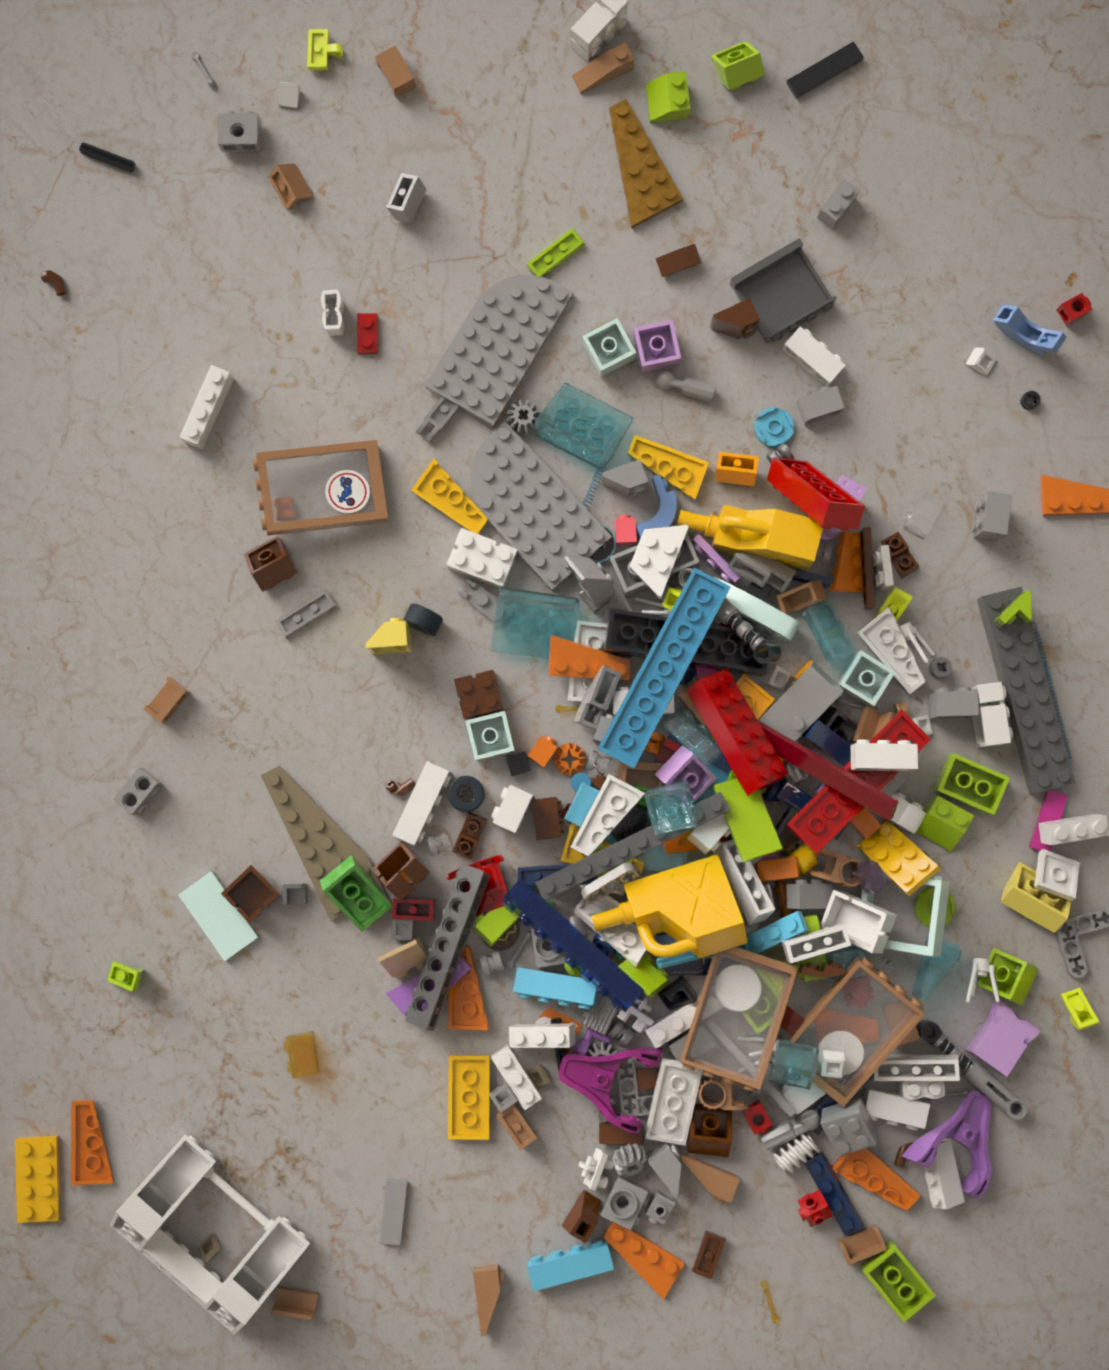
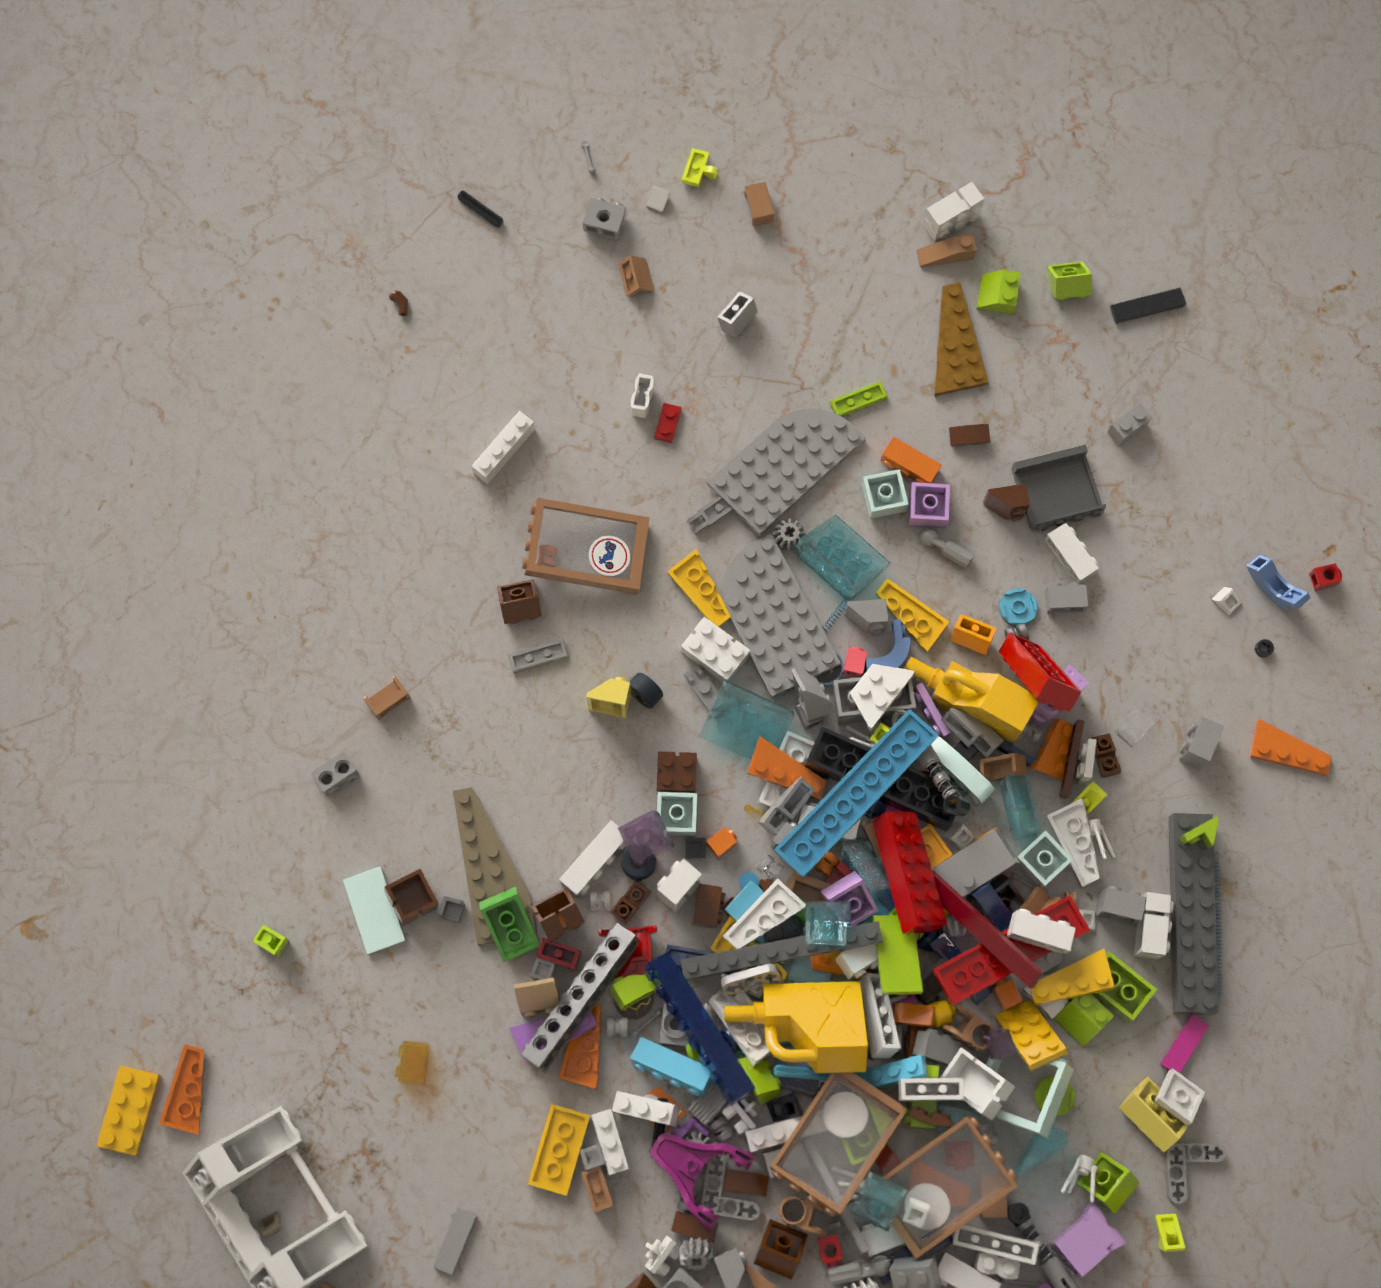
camera: 10 degrees right, 10 degrees down
(399, 789) = (577, 840): reddish brown arm -> none
(466, 770) = (646, 837): none -> clear purple brick
(540, 1076) = (632, 1149): dark tan slope -> none
(575, 751) = (736, 862): orange gear -> none
(625, 306) = (910, 462): none -> orange brick
(673, 1103) = (753, 1209): white plate -> none
(930, 790) = (1078, 979): none -> yellow wing
(937, 670) = (1114, 873): flat silver wheel -> none
(1073, 829) = (1206, 1057): white brick -> none

